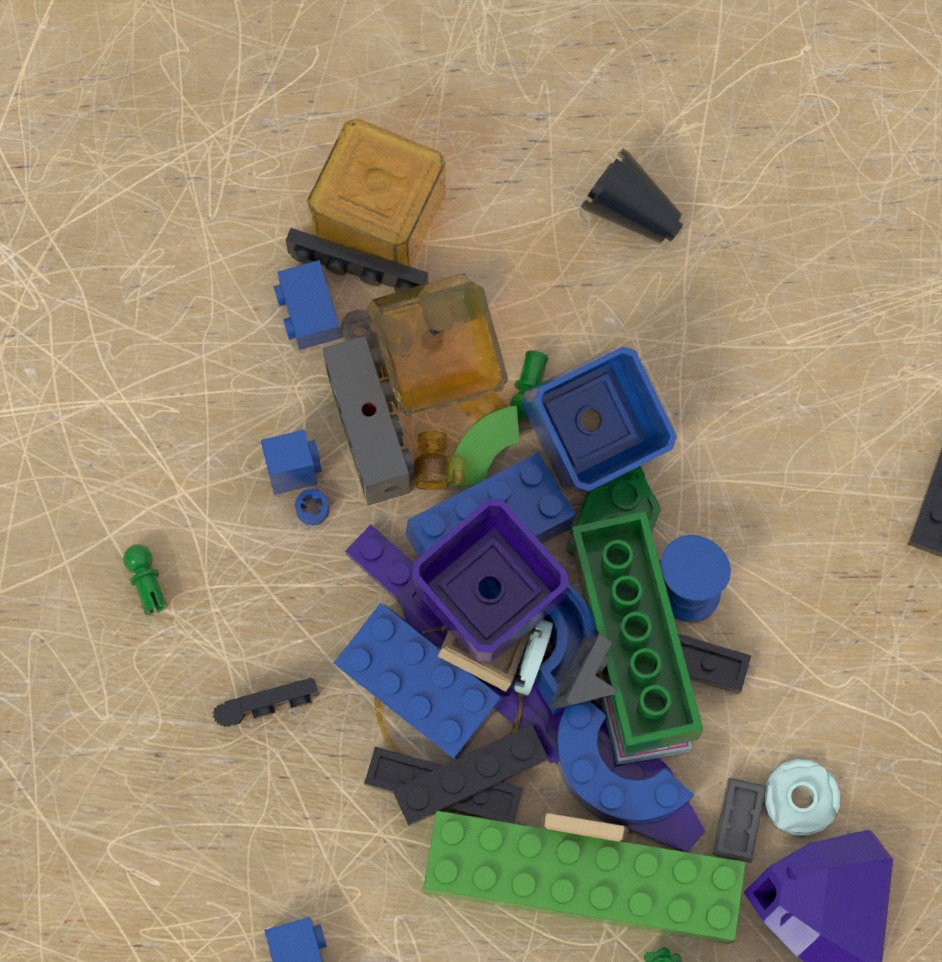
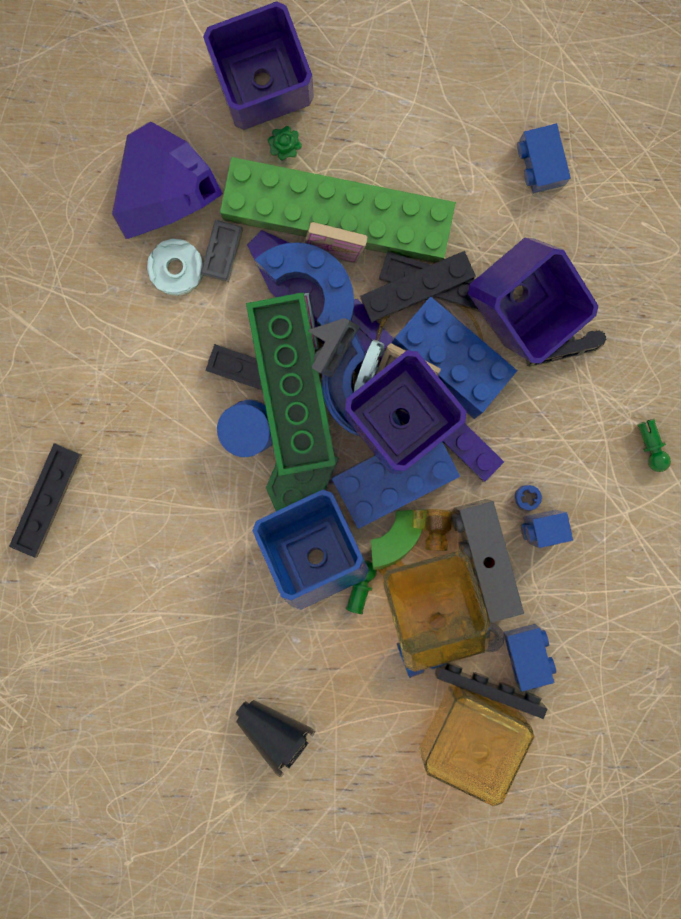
camera: 175 degrees left, 15 degrees up
(318, 751) = (552, 301): none -> dark purple plate

